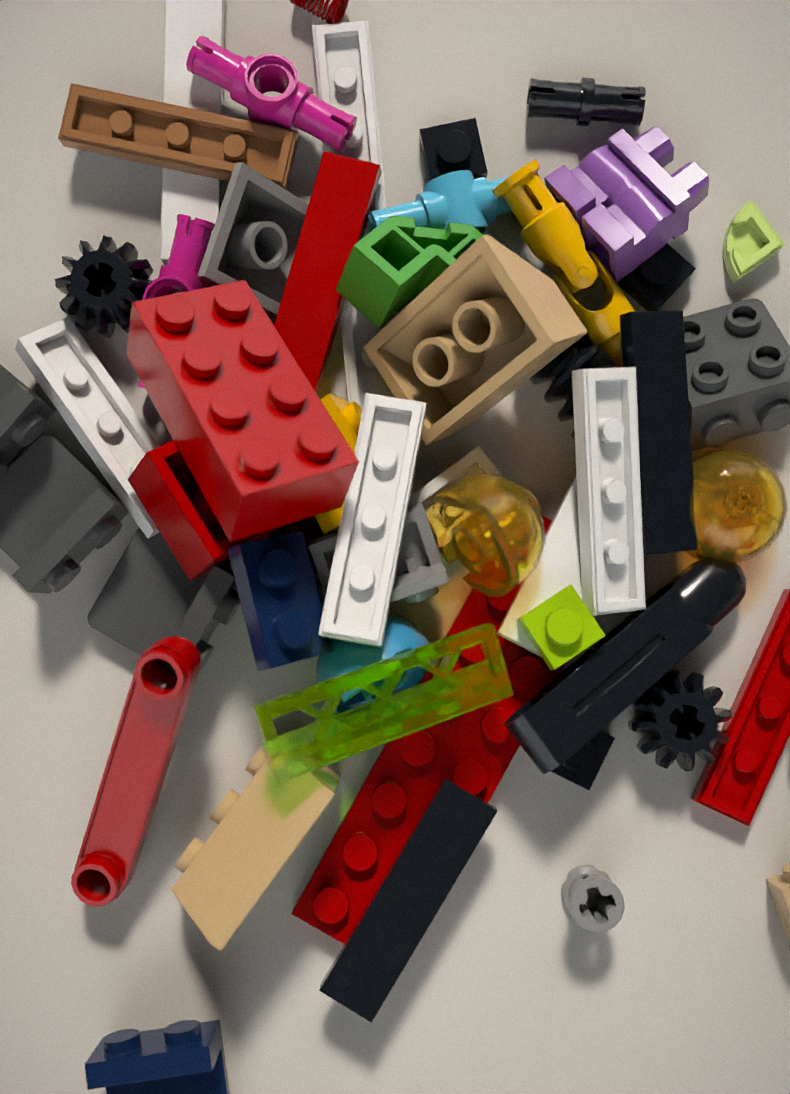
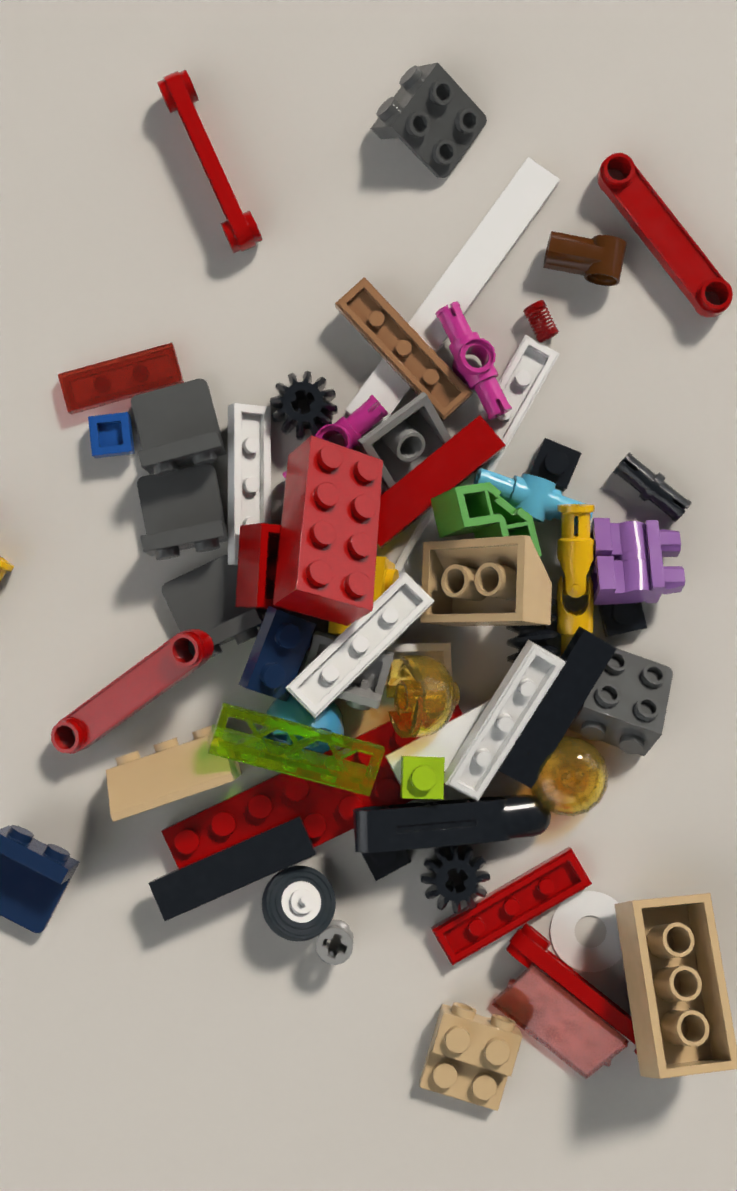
camera: 40 degrees right, 0 degrees up
(517, 883) = (298, 903): none -> black wheel
(748, 242) = (689, 633): yellowish green tile -> none

